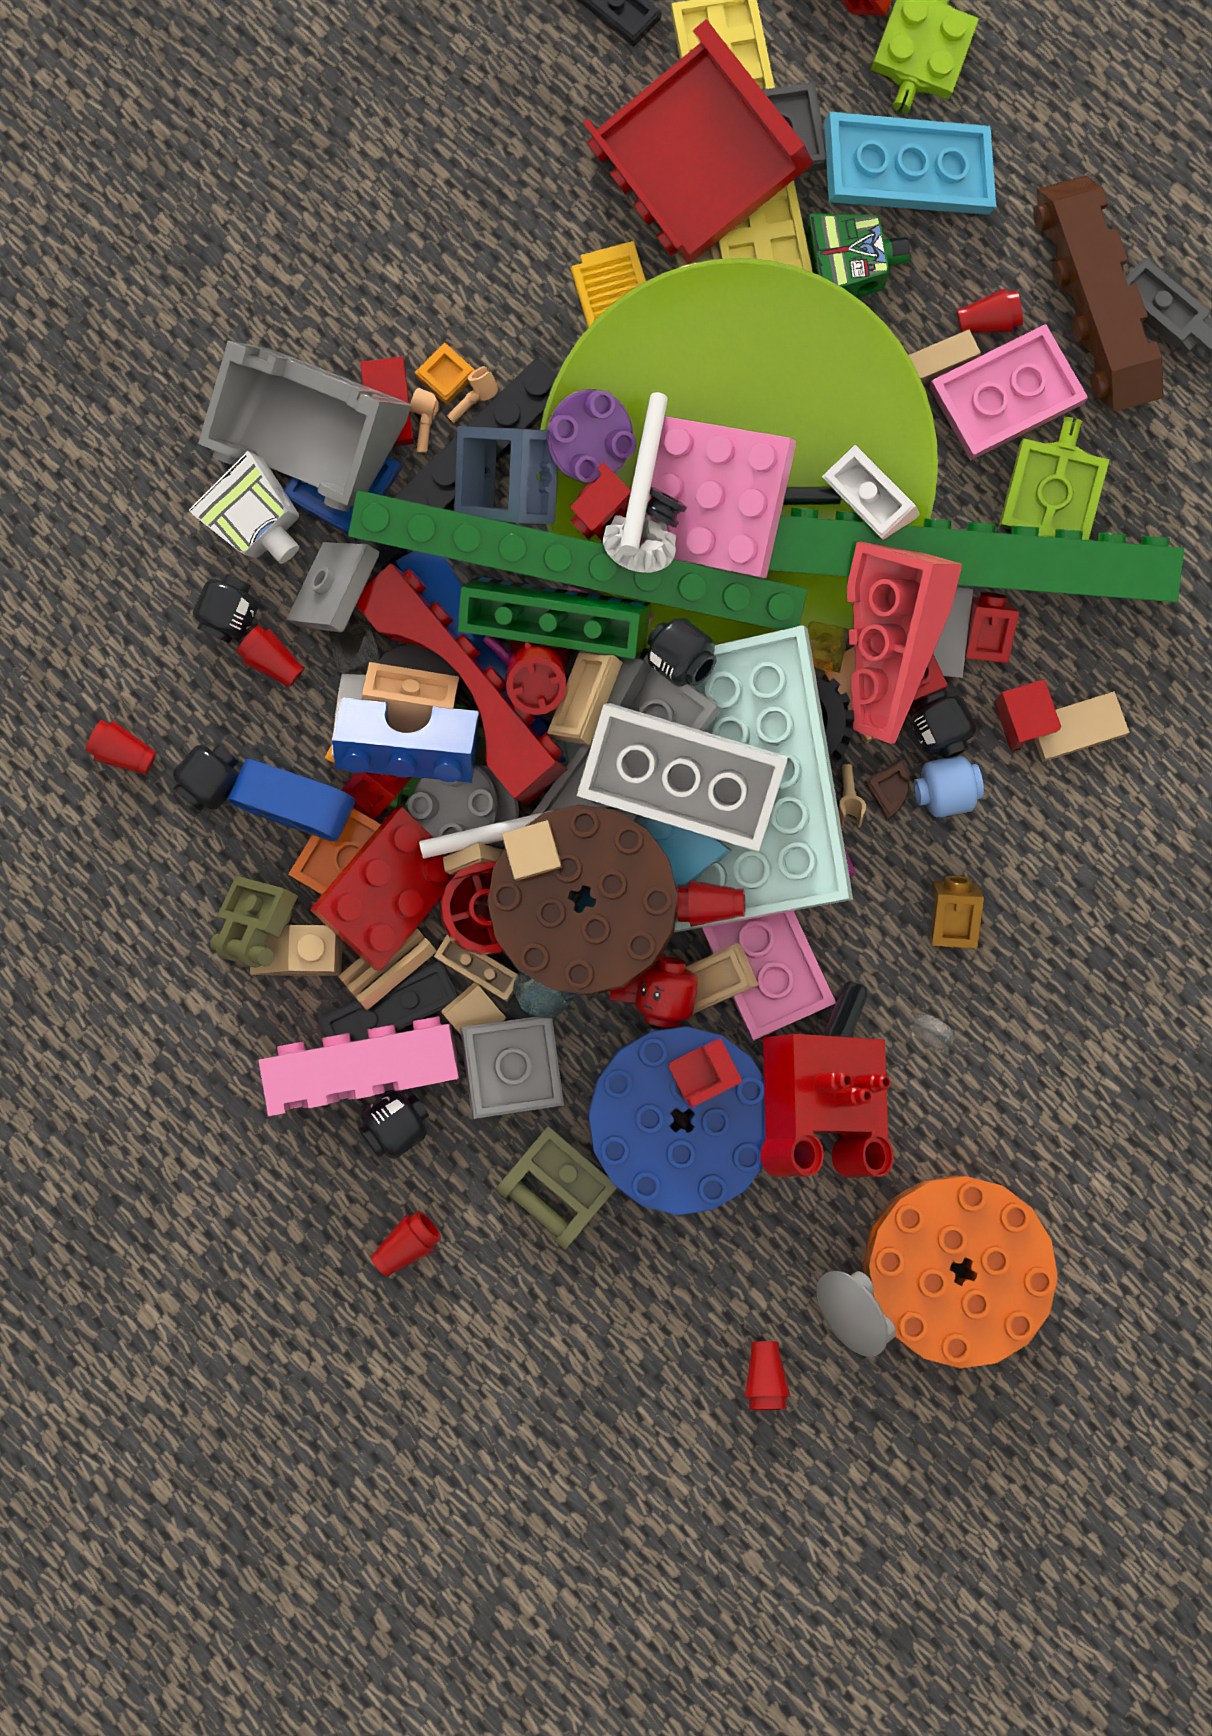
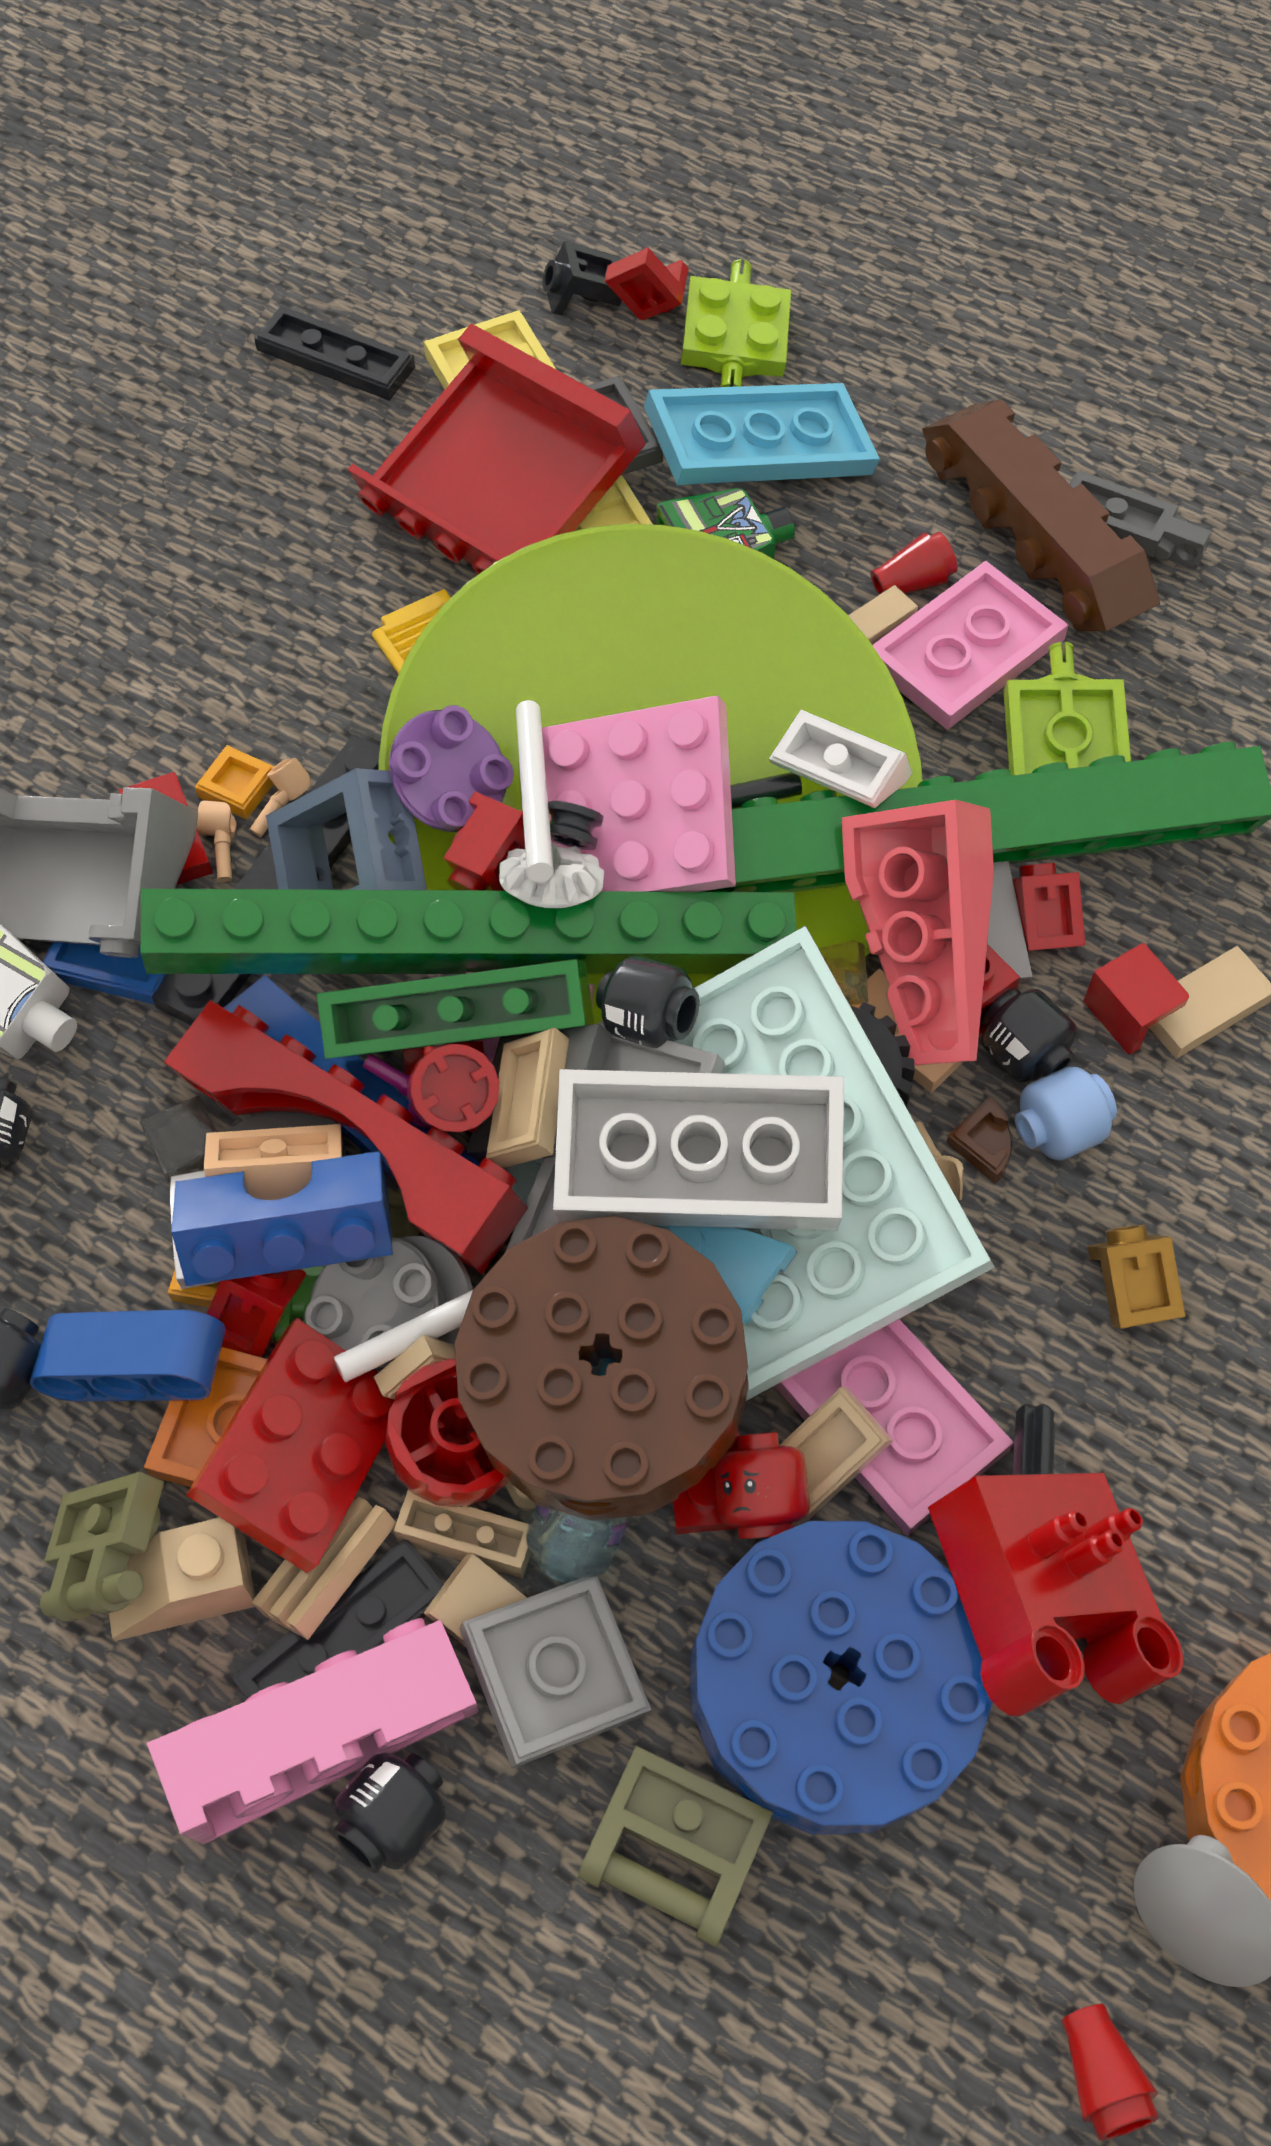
camera: 15 degrees left, 20 degrees down
(269, 656) = (60, 1175): red cone -> none
(333, 586) = (135, 1057): light grey plate -> none
(407, 1243) = (454, 2011): red cone -> none
(531, 850) = (507, 1297): tan tile -> none
(704, 1072) = (859, 1573): red panel -> none
(709, 903) = (789, 1327): red cone -> none
(932, 1032) = (1167, 1450): clear tile -> none

